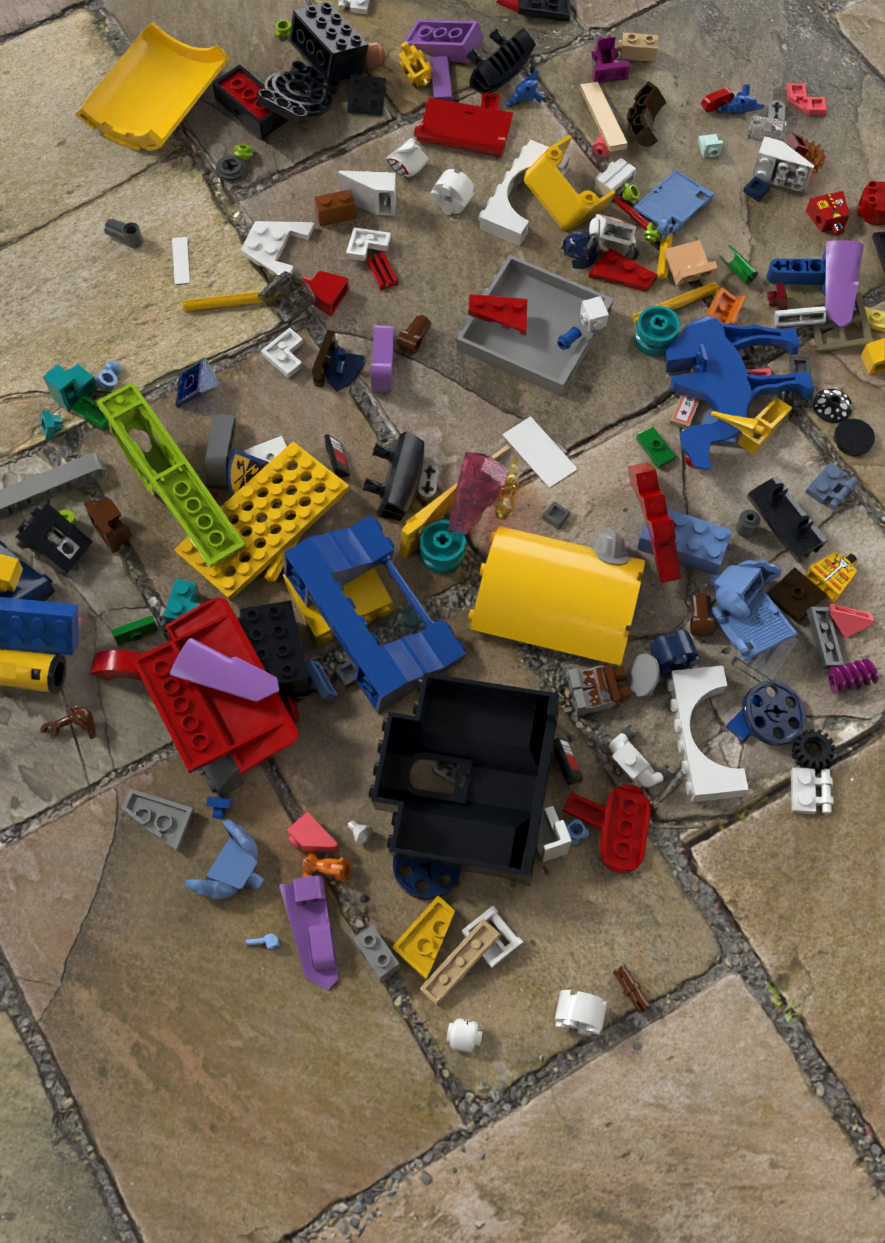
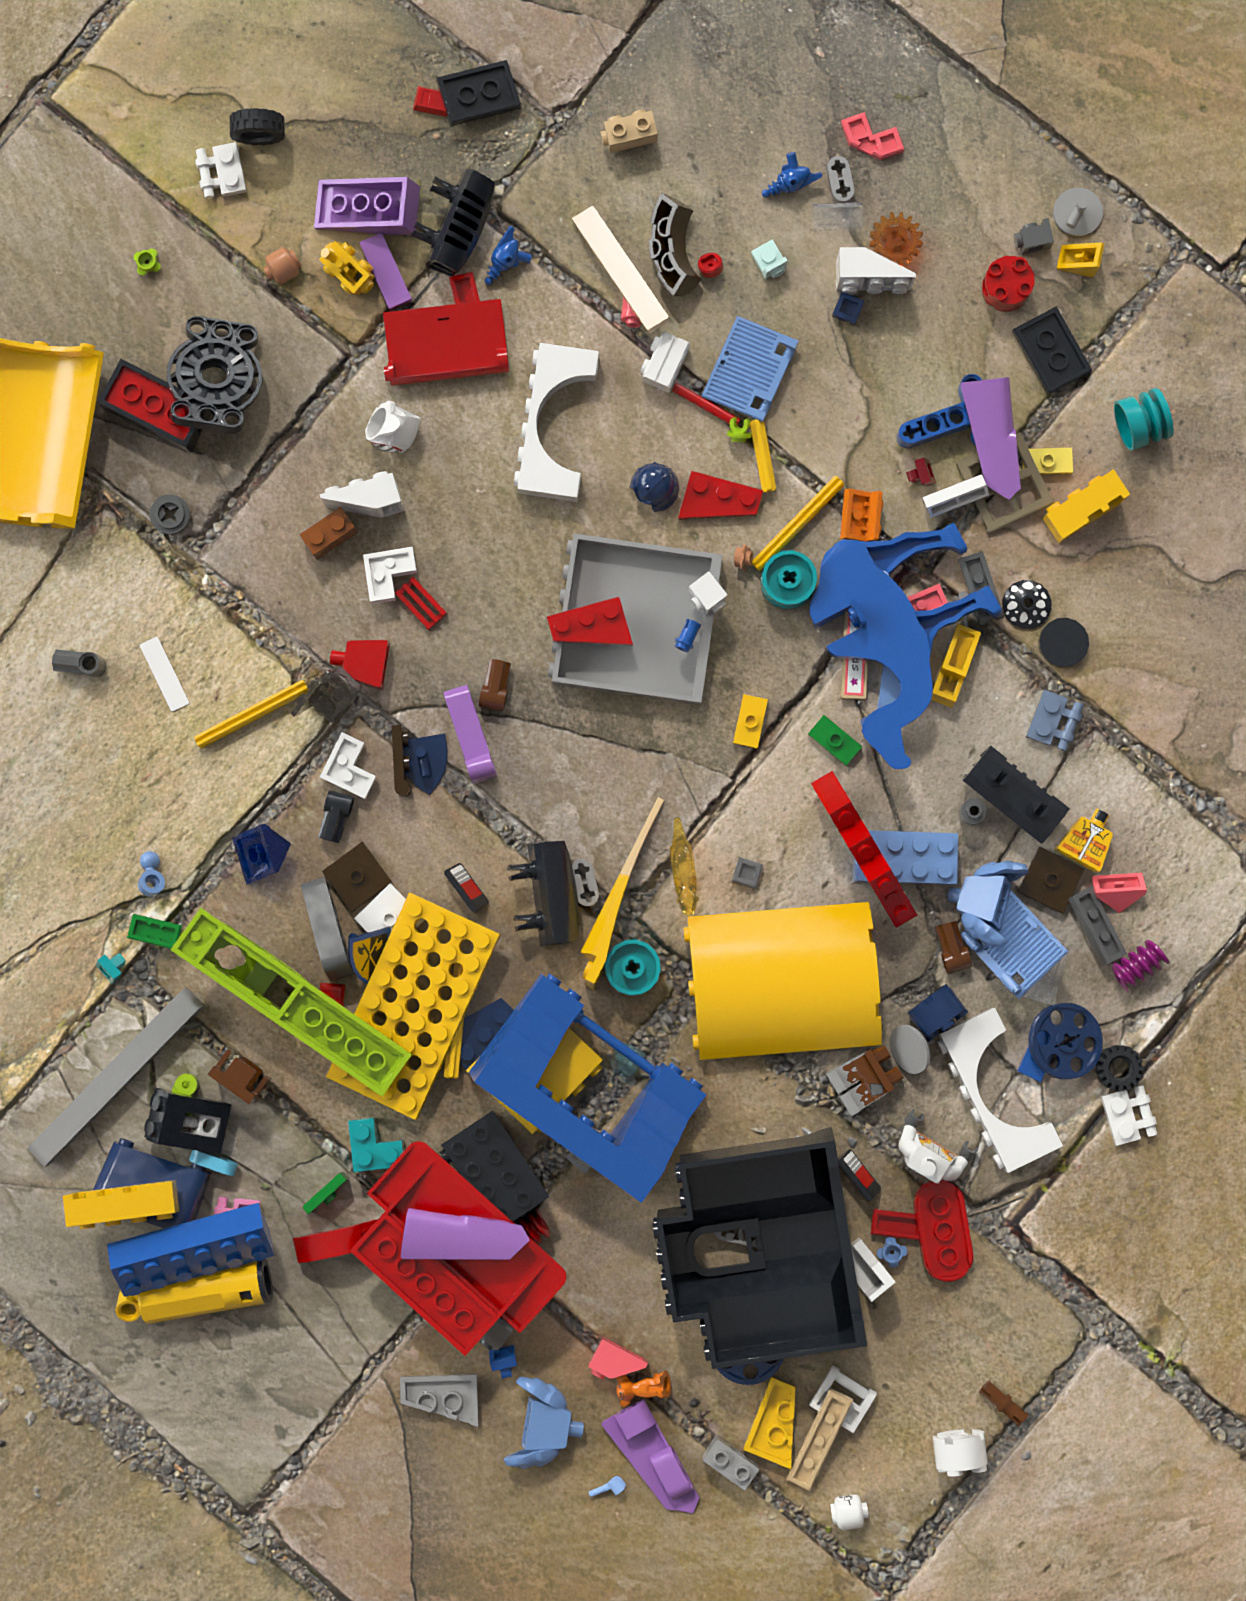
camera: 15 degrees left, 20 degrees up
(60, 580) = (213, 1162): none -> medium azure beam
(69, 385) = (113, 910): teal brick -> none
(78, 716) = (311, 1319): reddish brown piece -> none
(243, 151) = (176, 490): lime plate -> none
(258, 424) = (357, 876): none -> dark brown plate
(263, 376) = (336, 809): none -> black piece
(268, 240) = (262, 612): white wing -> none
(320, 681) = (556, 1179): medium blue plate -> none
(328, 42) = (222, 280): black brick -> none
(360, 832) = (664, 1335): white rock -> none
(366, 95) = (300, 335): black bracket -> none
(452, 192) = (469, 462): white brick -> none
(477, 486) = (650, 890): clear pink wedge -> none
(540, 452) = (700, 792): white sticker -> none
(557, 194) = (599, 421): yellow windscreen -> none
(595, 415) = (750, 721): none -> yellow plate
(604, 53) = (587, 153): magenta tile -> none
(610, 547) = (826, 905): light grey piece -> none
(613, 230) = (687, 452): white torso -> none
(627, 310) = (743, 557): none -> nougat plate
(631, 193) = (692, 375): lime plate -> none
(665, 228) = (754, 424): medium blue plate -> none
(667, 136) = (710, 265): none -> red tile
(689, 263) = (798, 462): light nougat bracket -> none
(716, 99) = (758, 182): red beam -> none
(741, 267) = (860, 441): green piece -> none
(746, 425) = (939, 695): yellow piece -> none
(797, 143) = (883, 236): dark red tile -> none
(829, 212) = (951, 319): red torso -> none

